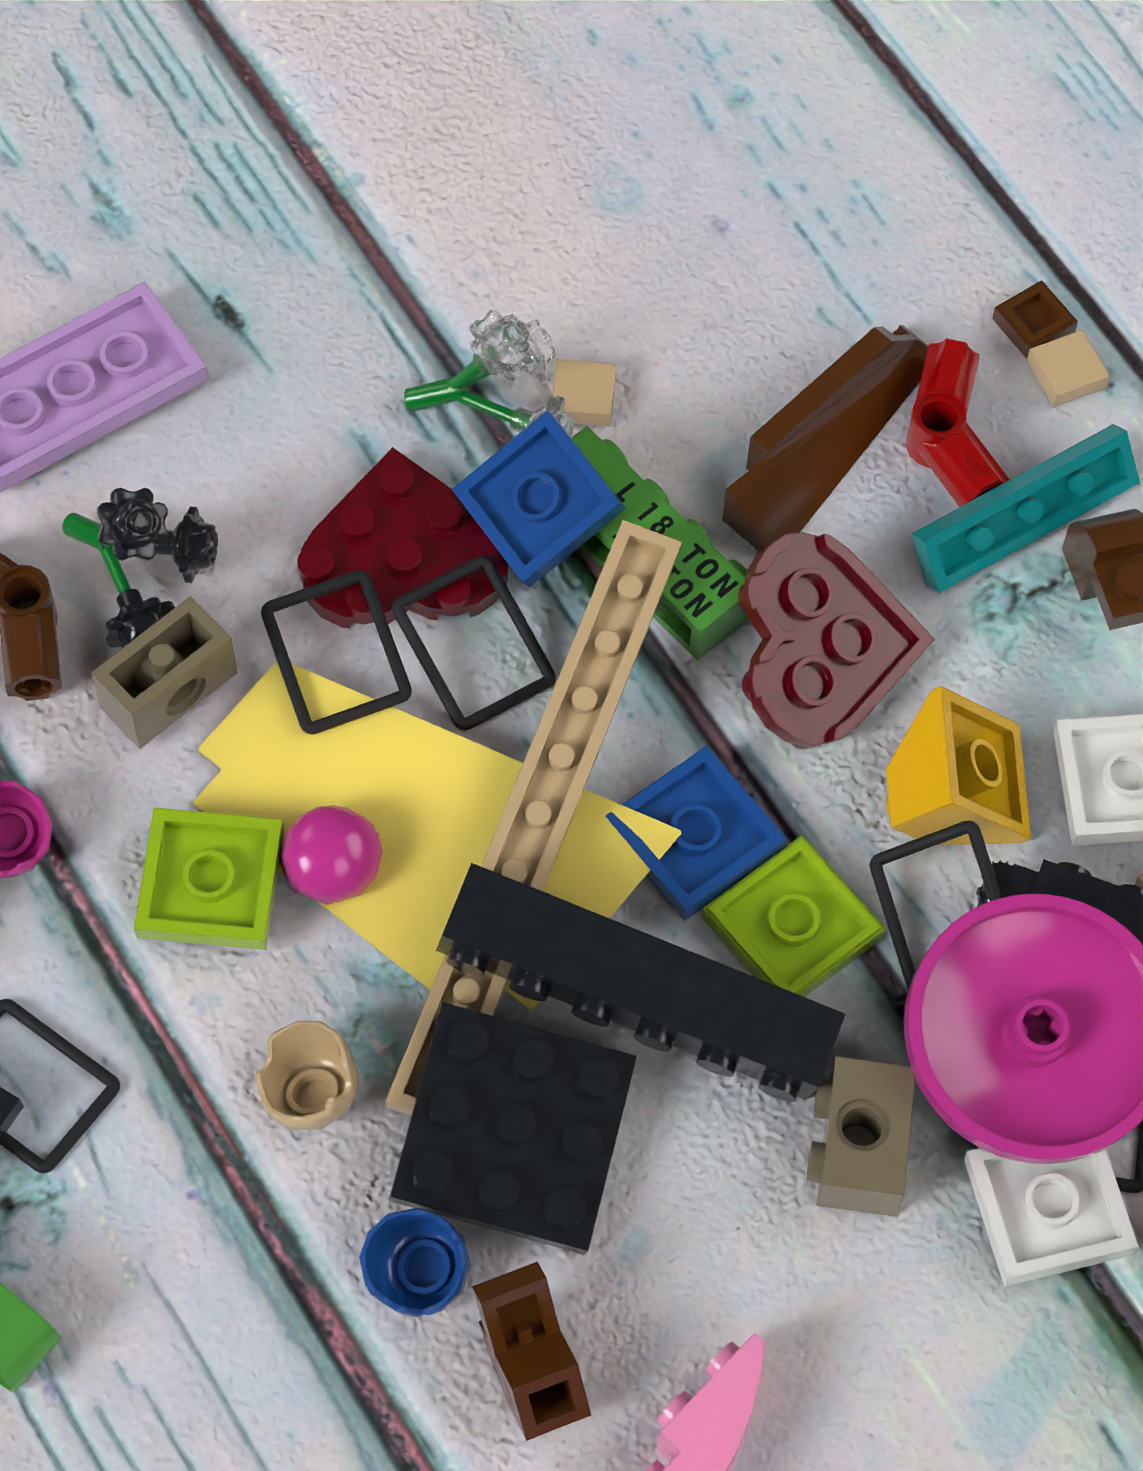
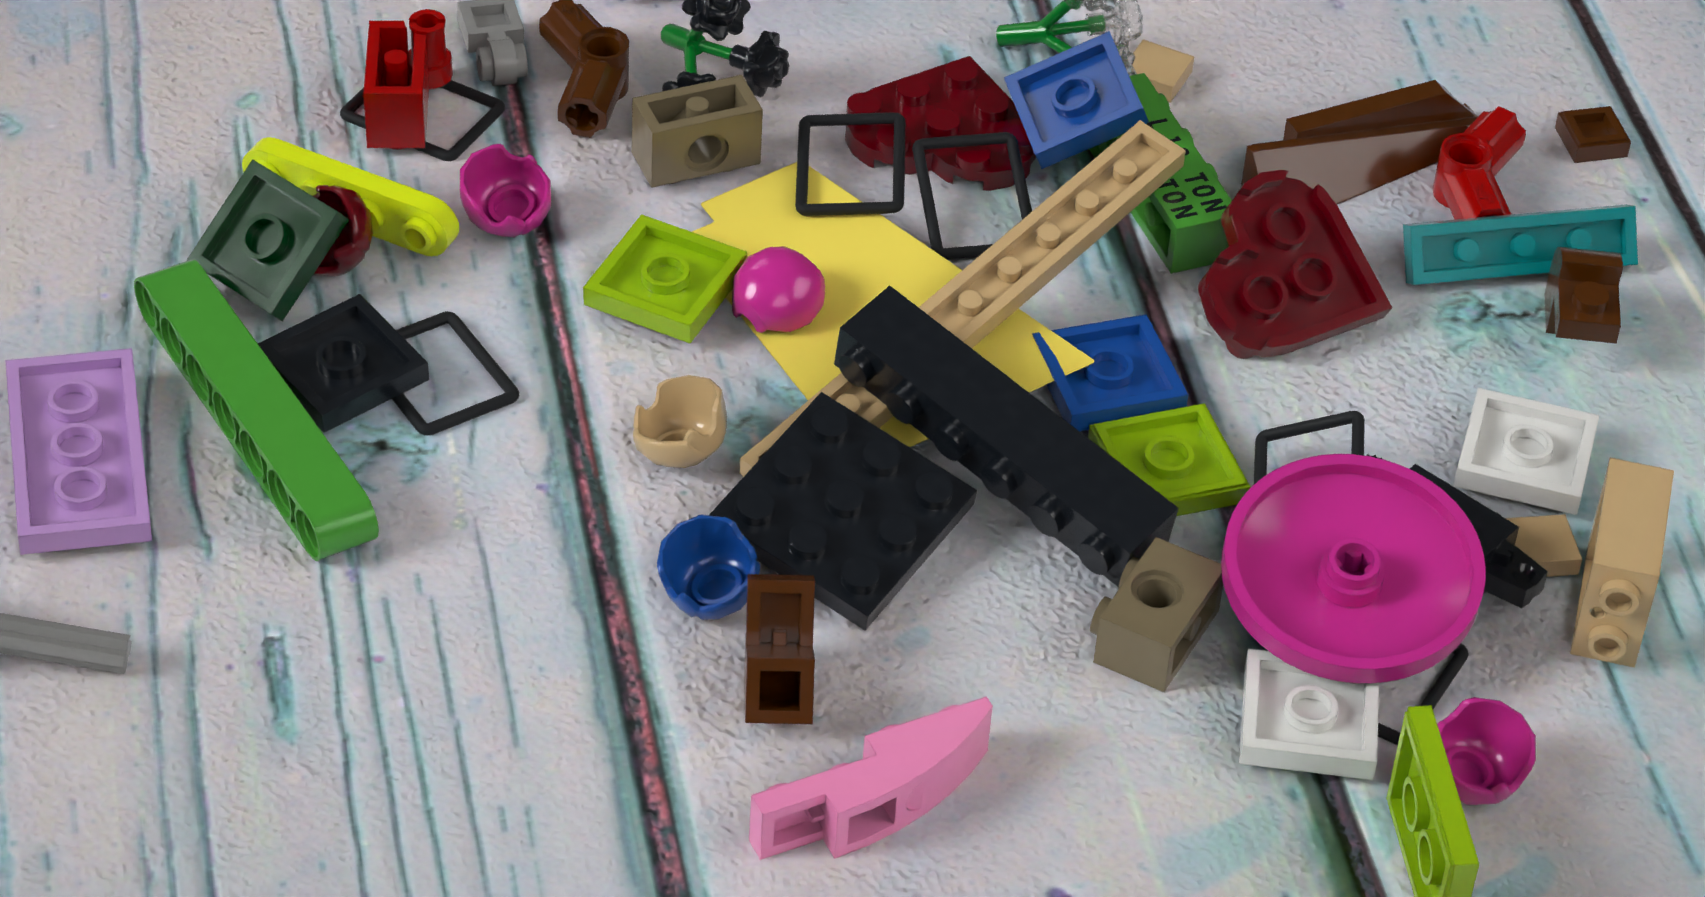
camera: 20 degrees right, 20 degrees down
(958, 768) = (1379, 378): yellow slope -> none
(1068, 368) = (1607, 172): tan tile -> none

